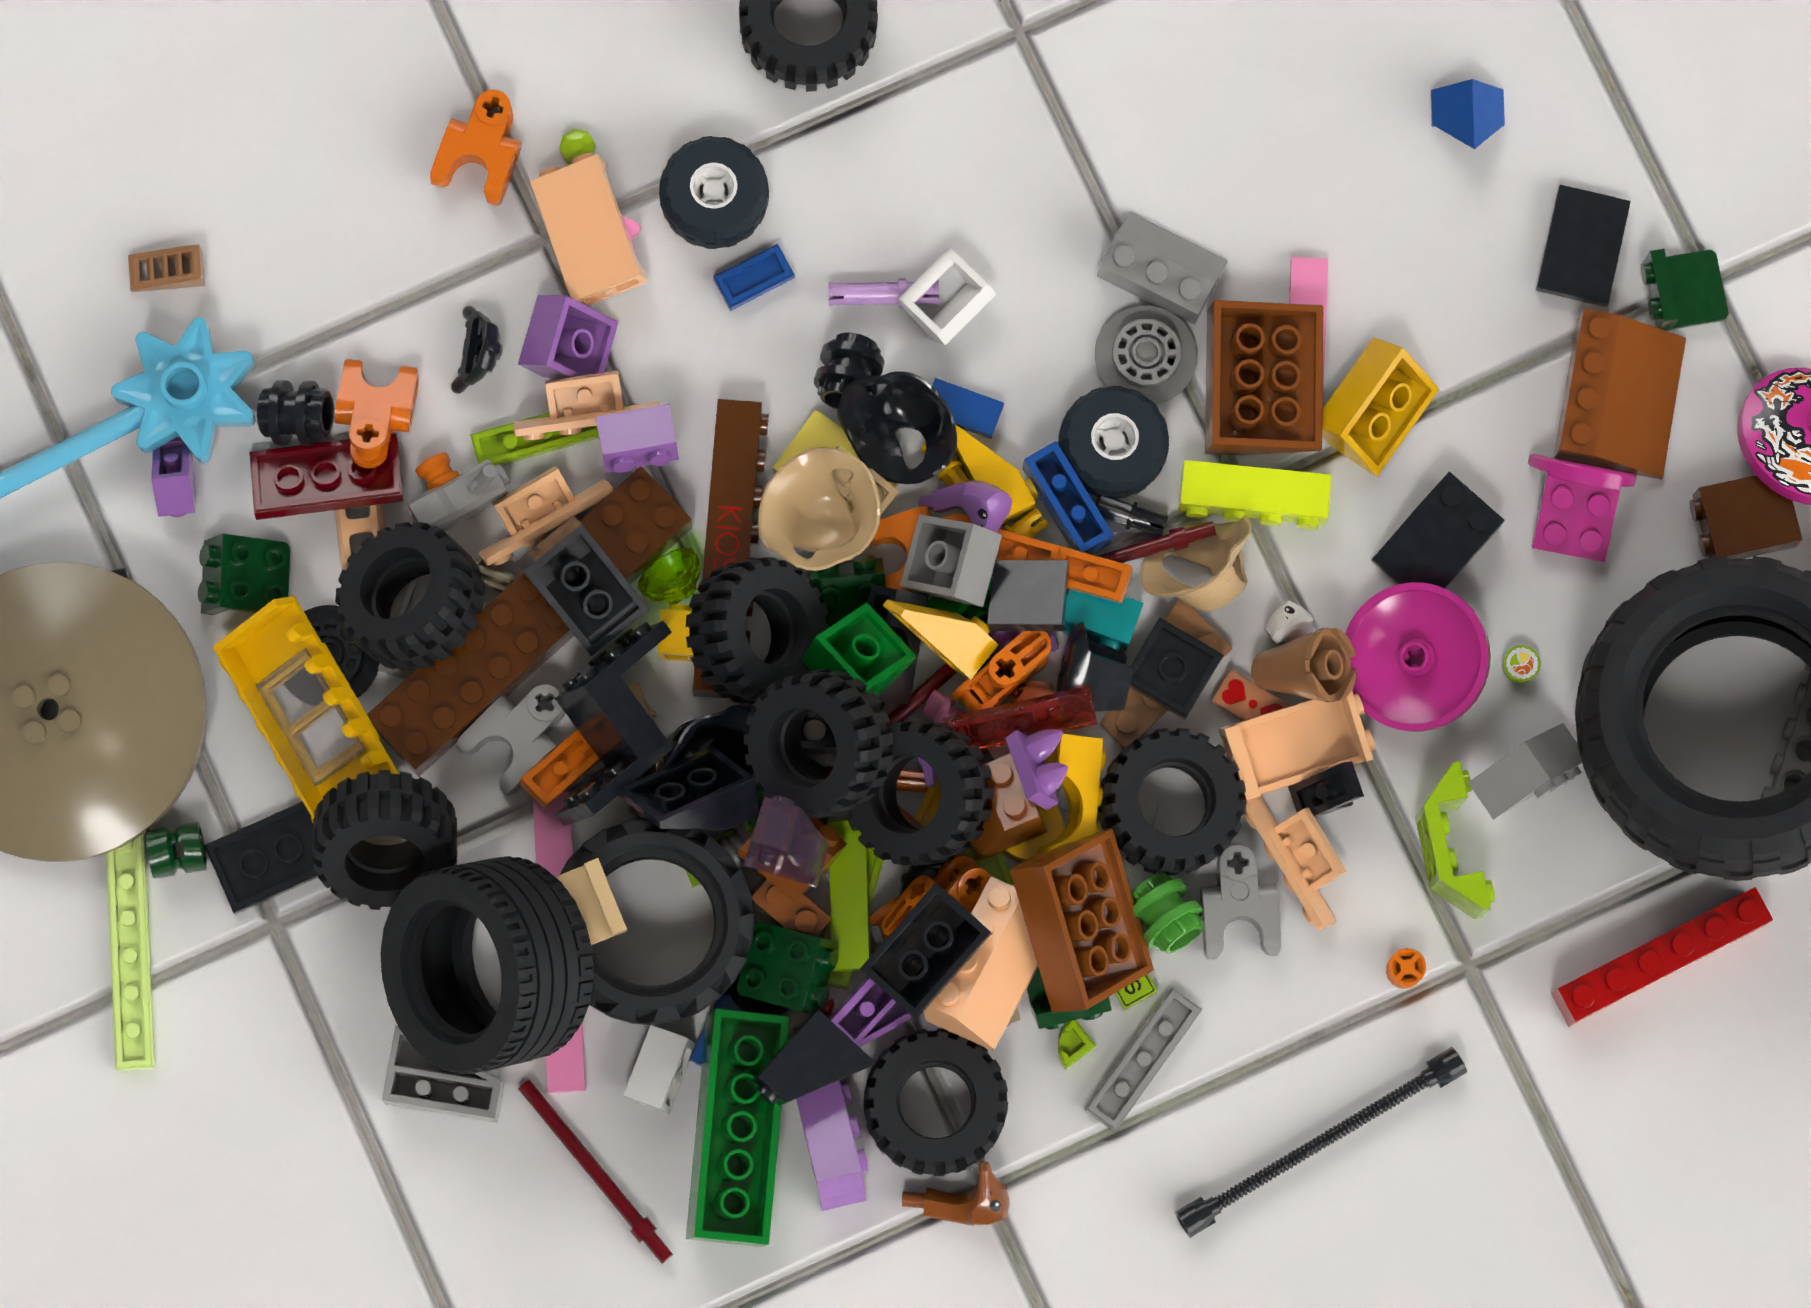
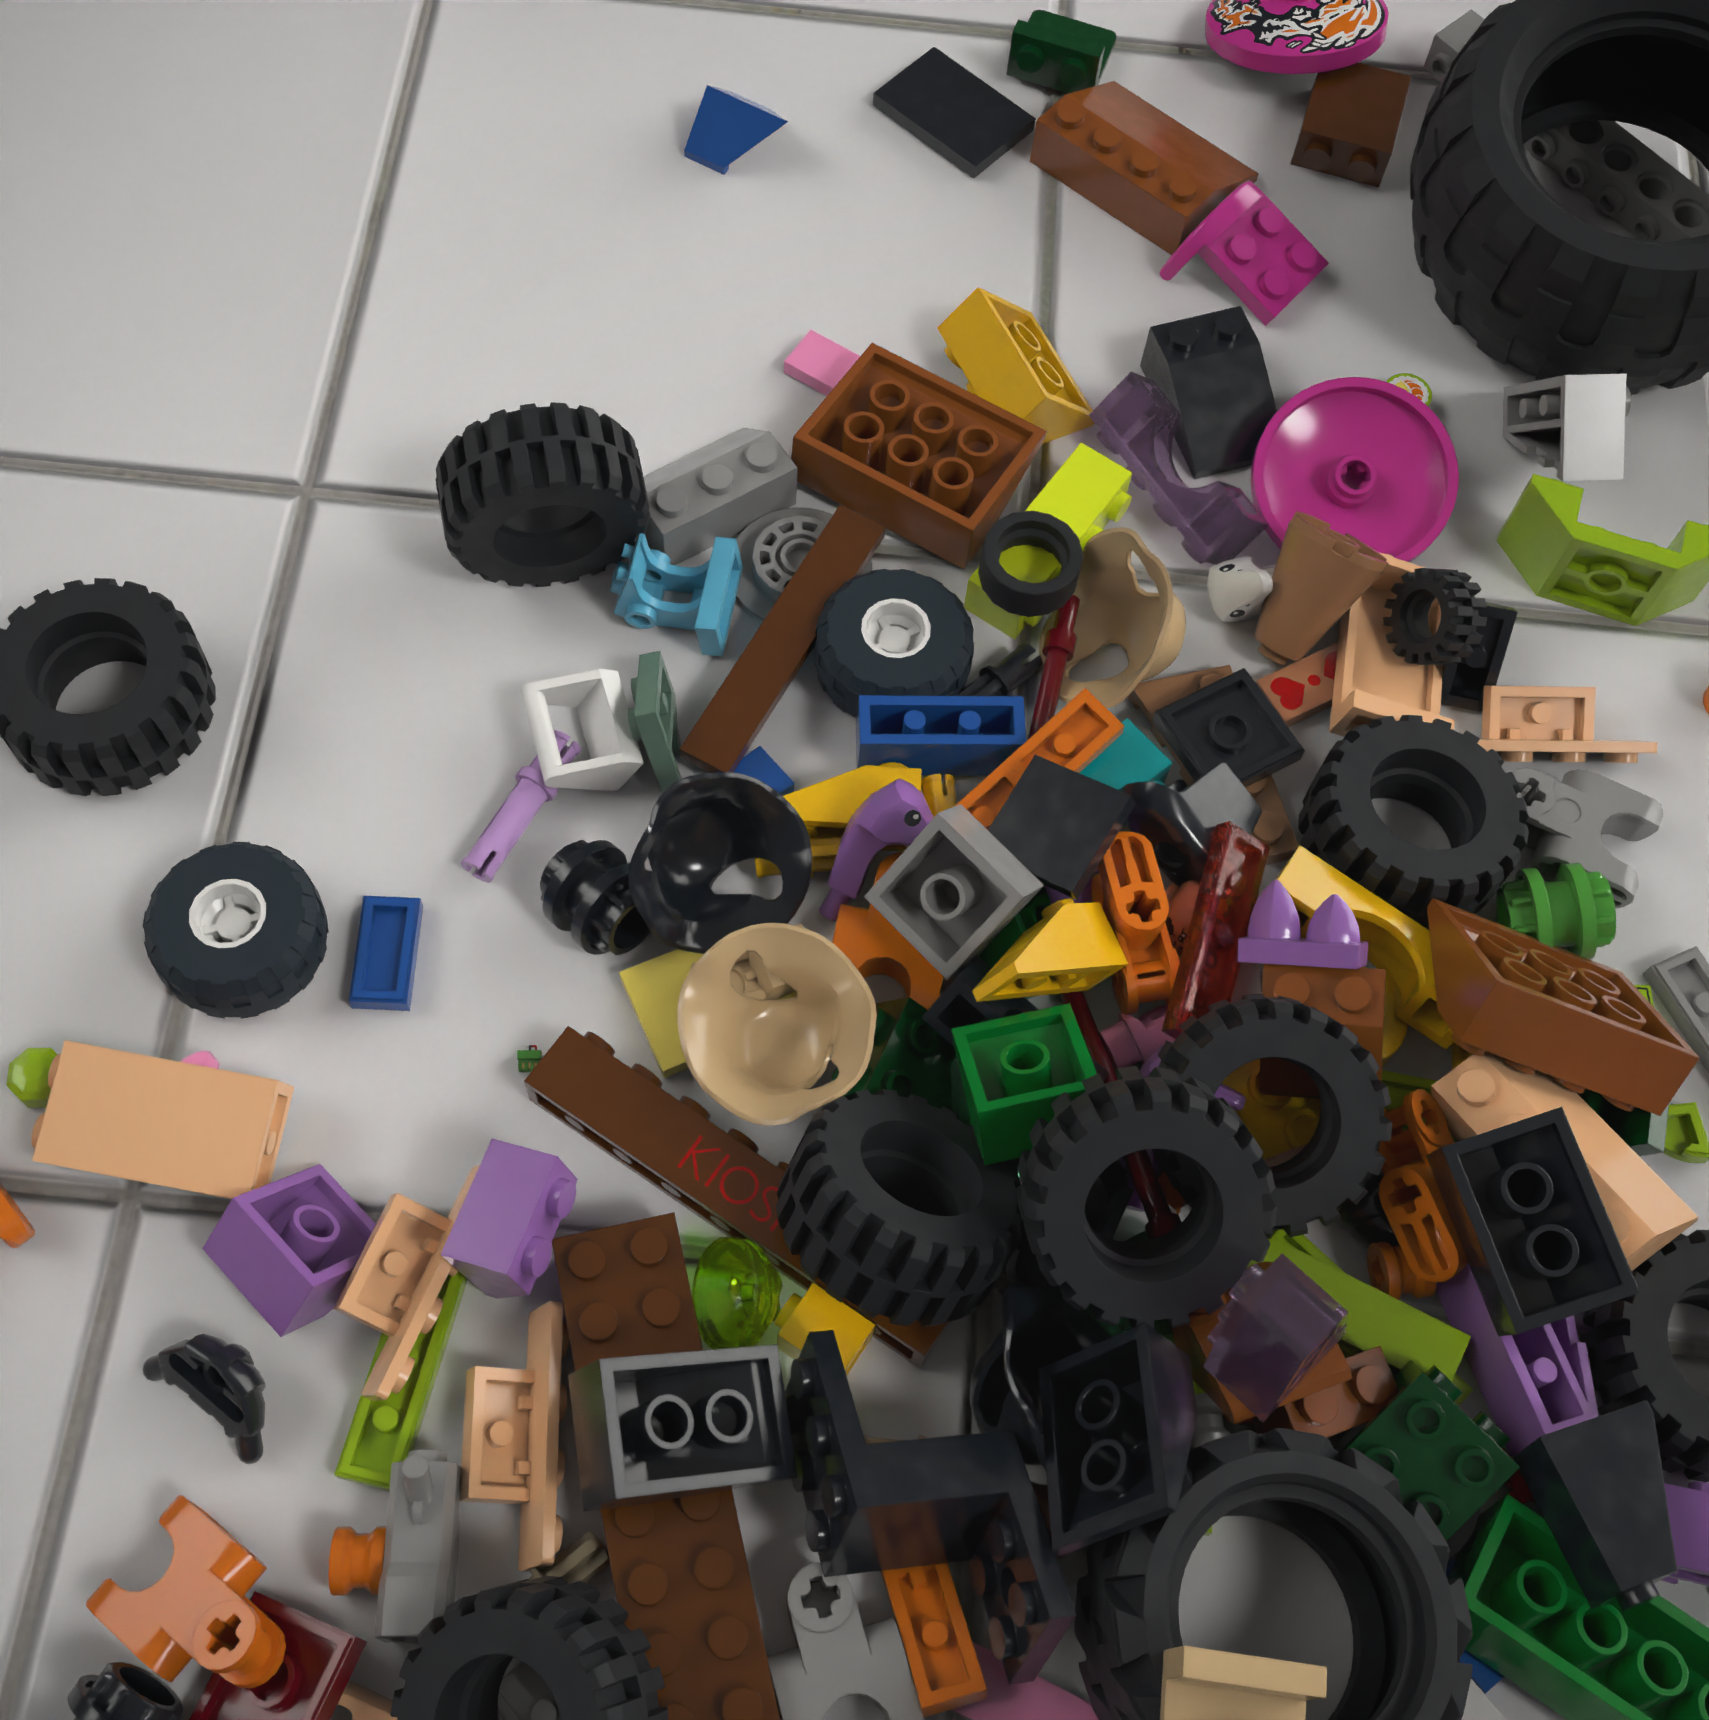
camera: 60 degrees left, 15 degrees down
(739, 392) = (528, 1058): none -> bright green piece
(980, 334) = (656, 717): none -> sand green wing
(1066, 272) = (714, 589): none -> medium azure tile
(1069, 184) = (541, 494): none -> black tyre
(1077, 375) = (780, 644): none -> reddish brown tile
(1212, 462) = (1035, 530): none -> black tyre
(1325, 750) = (1457, 621): none -> black tyre
(1372, 506) = (1140, 427): none -> clear purple arch

